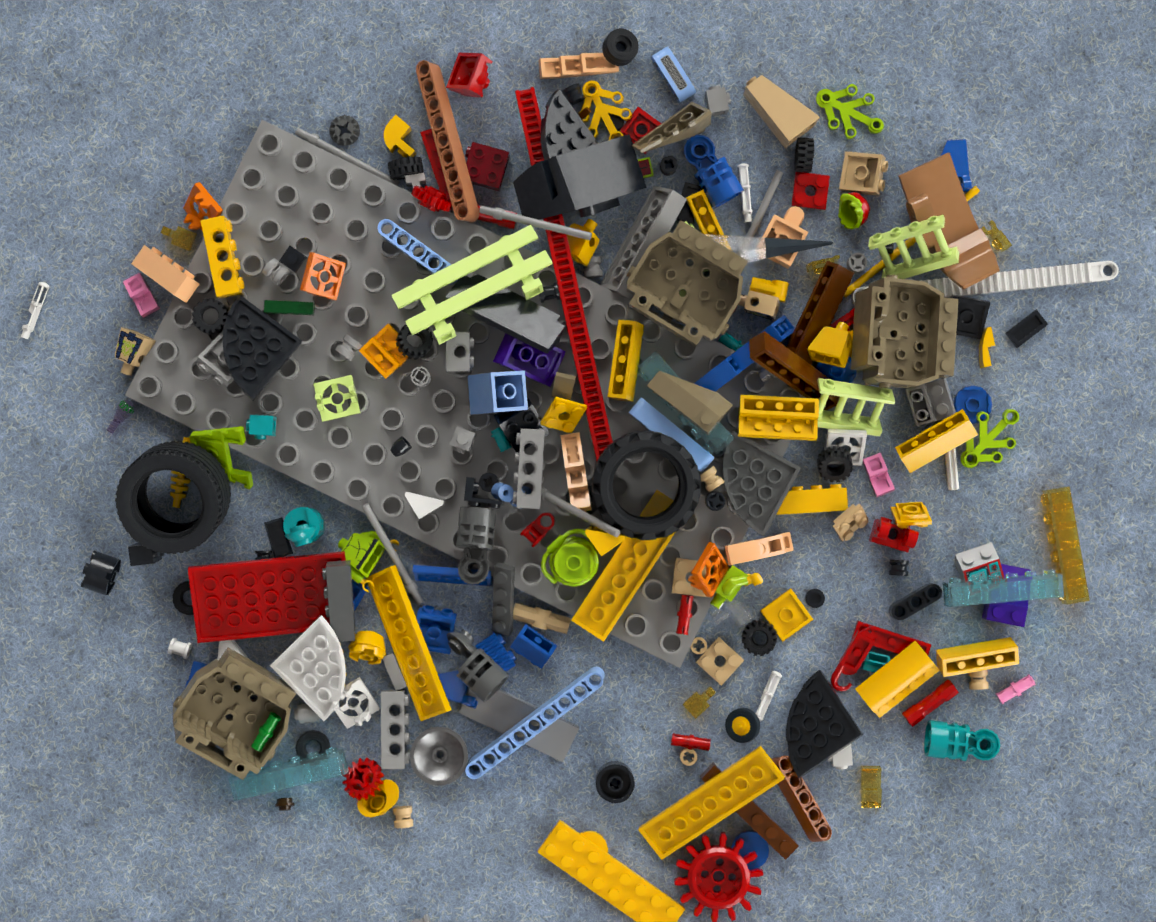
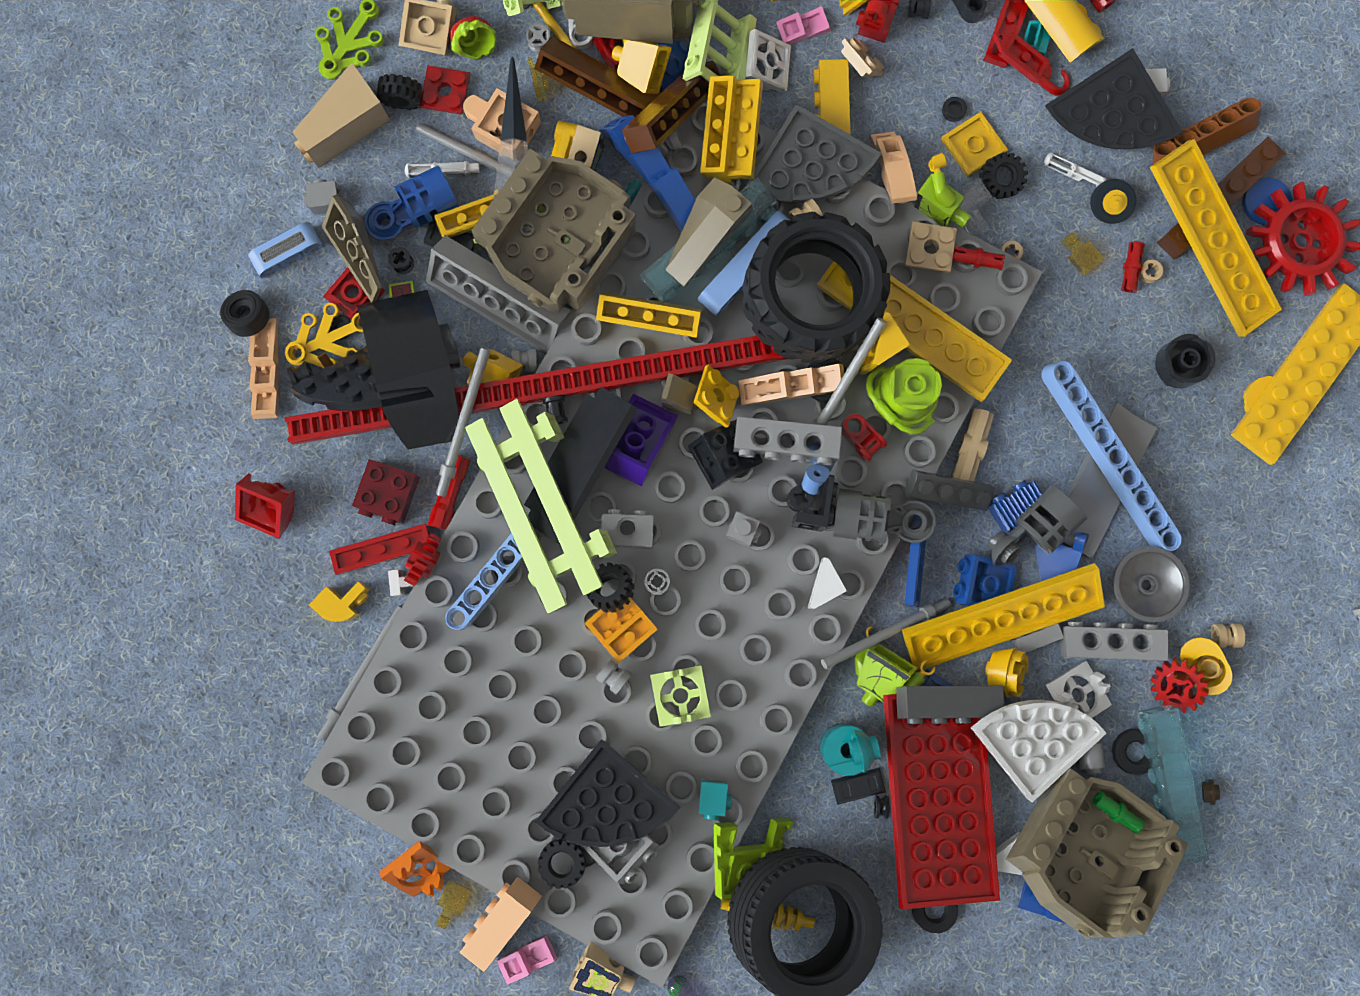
camera: 85 degrees left, 5 degrees down
(141, 555) = (882, 974): black brick -> none
(179, 648) = (1002, 925): white bush -> none
(211, 228) = (443, 857): yellow brick -> none
(275, 271) = (506, 770): light grey wheel -> none
(289, 307) = (556, 755): dark green piece -> none
(292, 259) = (491, 747): black plate -> none
(339, 268) = (509, 685): orange piece -> none
(346, 138) = (337, 673): dark grey gear -> none
(400, 447) = (749, 613): black hose -> none
(405, 166) = (378, 595): black tyre -> none
(444, 130) = (340, 545): nougat beam -> none
(497, 392) = (684, 479): medium blue slope -> none
(500, 439) = (744, 481): teal pin -> none
(533, 646) = (1010, 456): blue brick -> none
(710, 553) = (922, 214): orange piece -> none
(715, 501) = (835, 206): black wheel -> none
(719, 673) = (1045, 223): tan piece -> none
(831, 455) = (780, 77): black tyre -> none
(871, 787) = (1193, 53): clear yellow slope -> none

